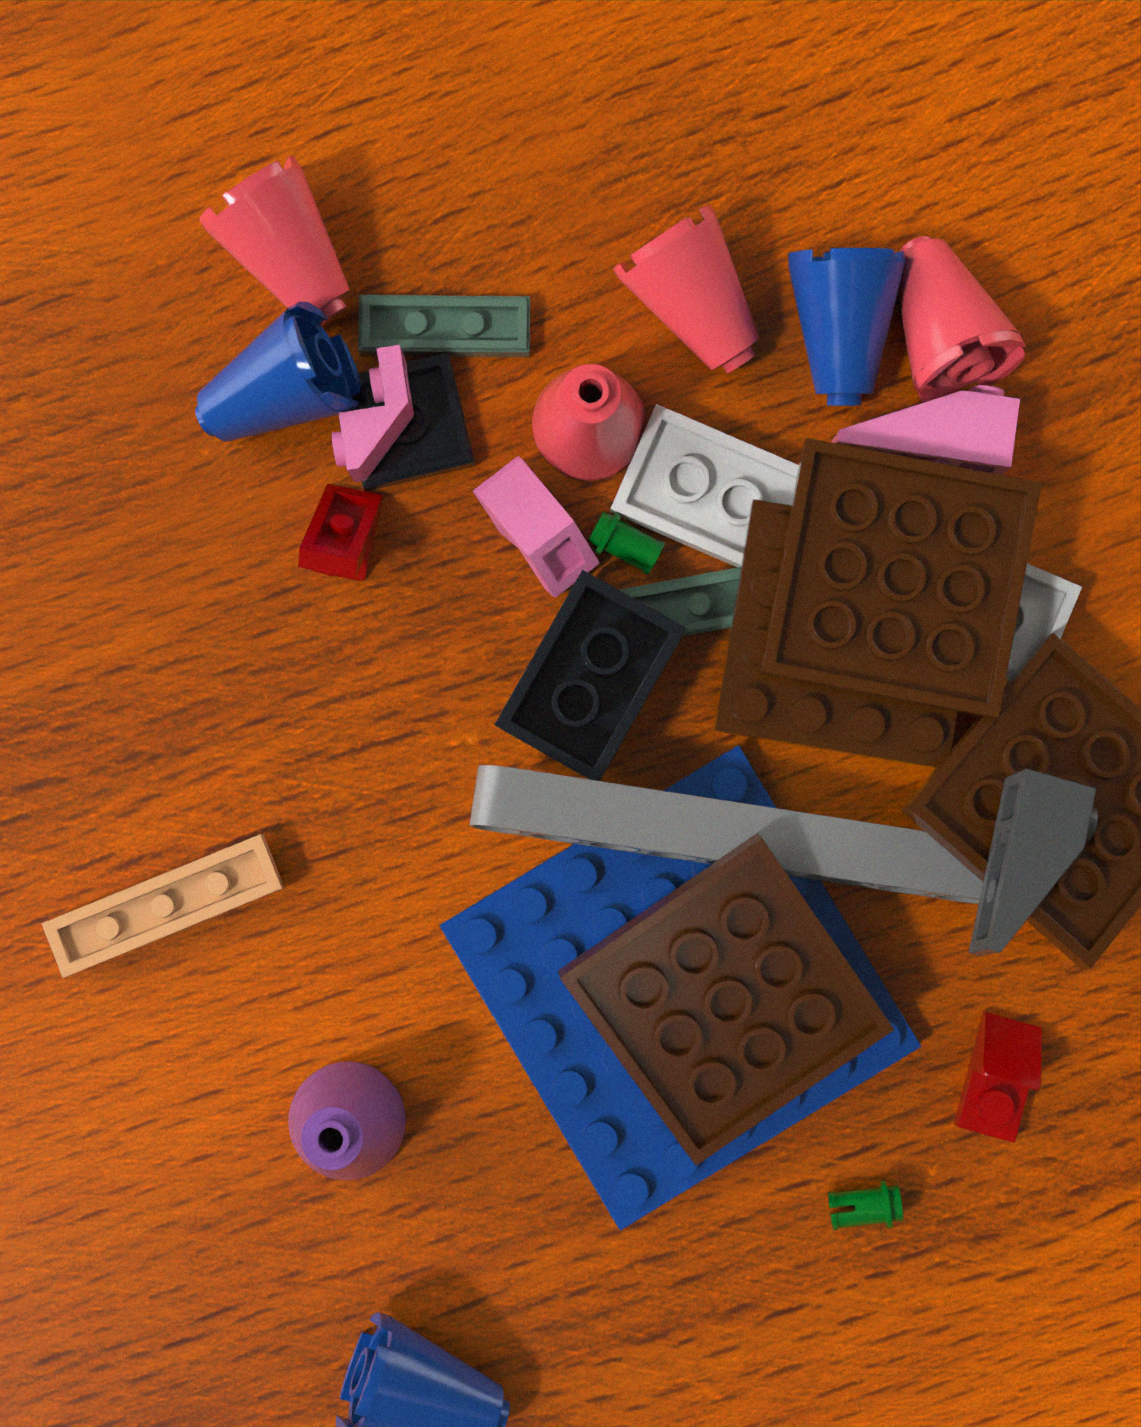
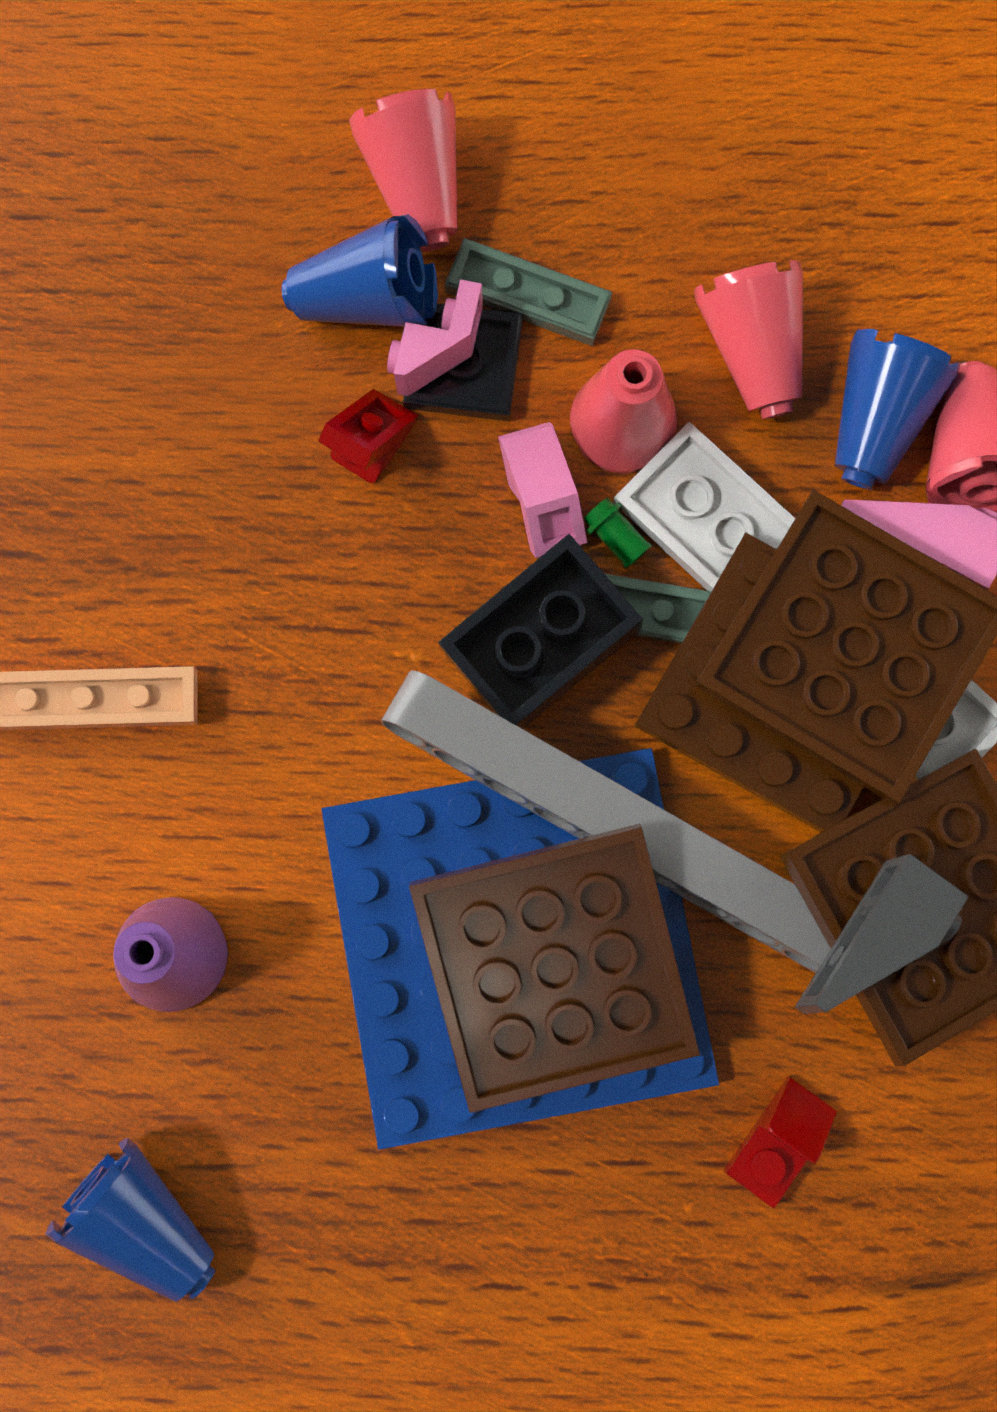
camera: 20 degrees right, 5 degrees down
(871, 1206) = (617, 1217): green pin -> none

